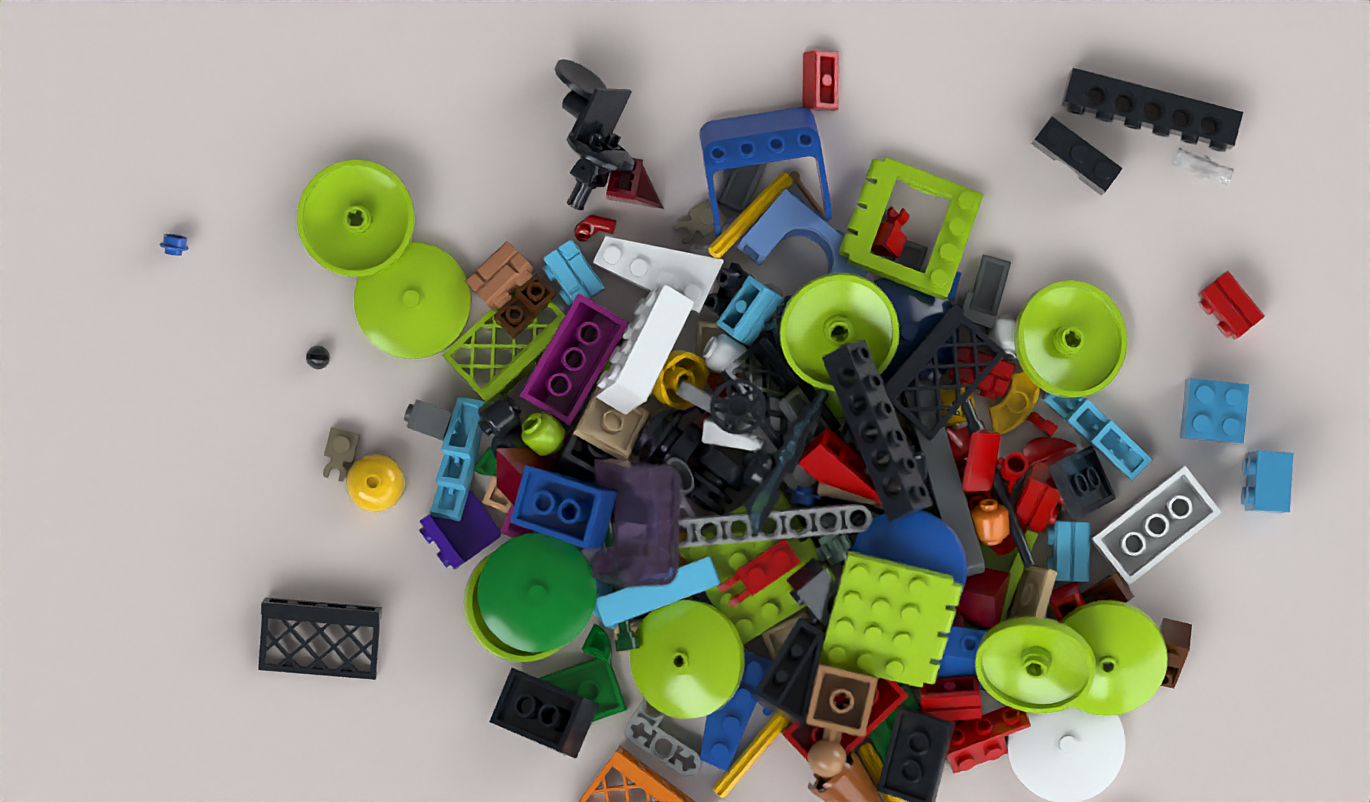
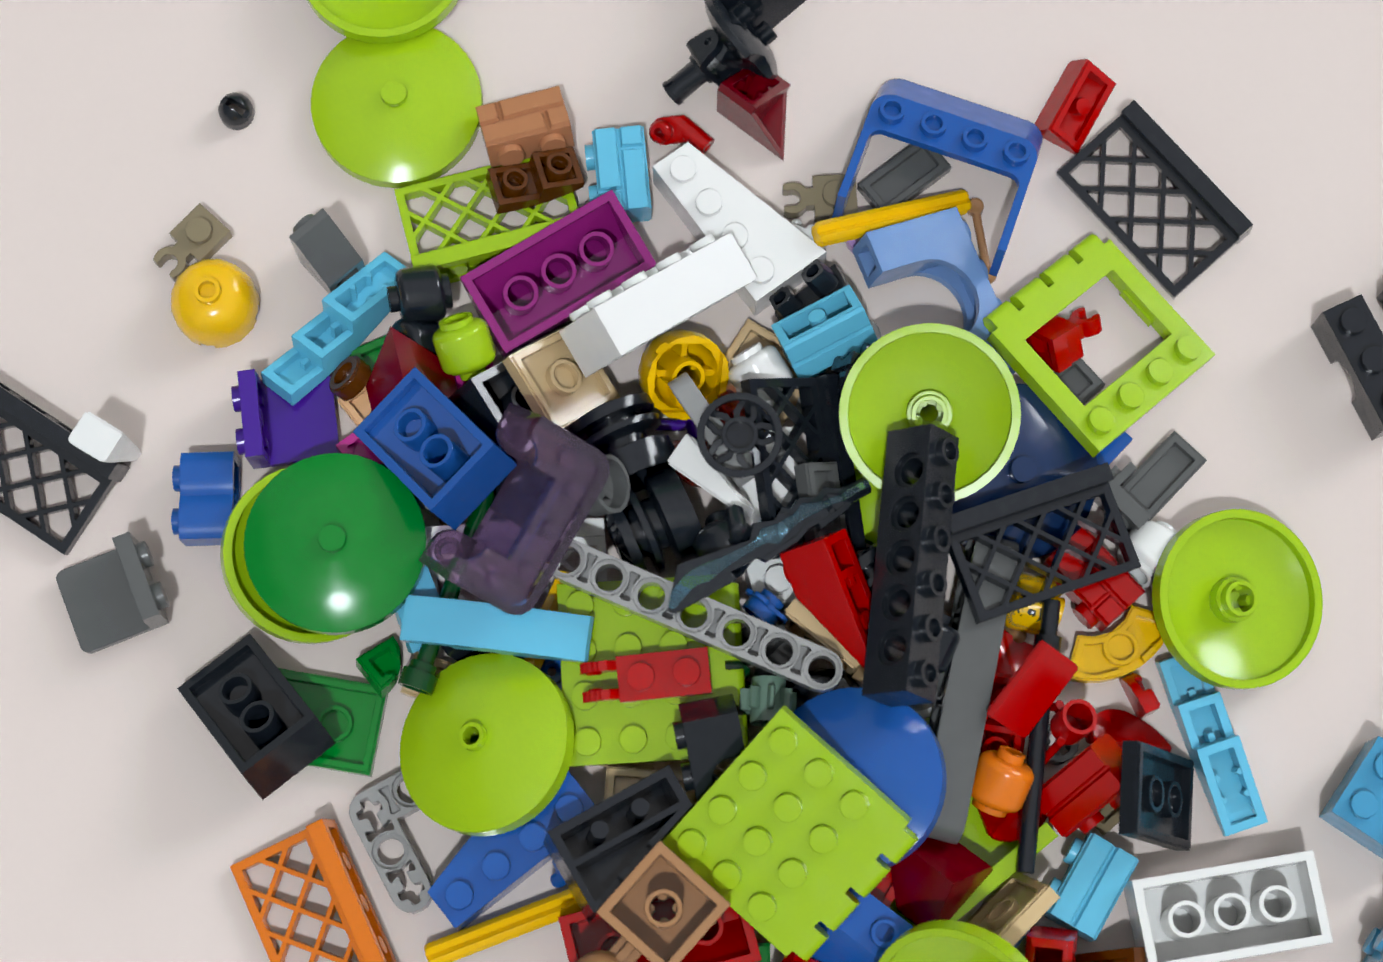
camera: 30 degrees right, 10 degrees down
(364, 605) = (103, 440): none -> white slope
(419, 688) = (113, 595): none -> dark grey bracket
(440, 601) = (208, 492): none -> blue brick
(483, 486) = (349, 378): none -> reddish brown tile
(909, 93) = (1181, 173): none -> black fence

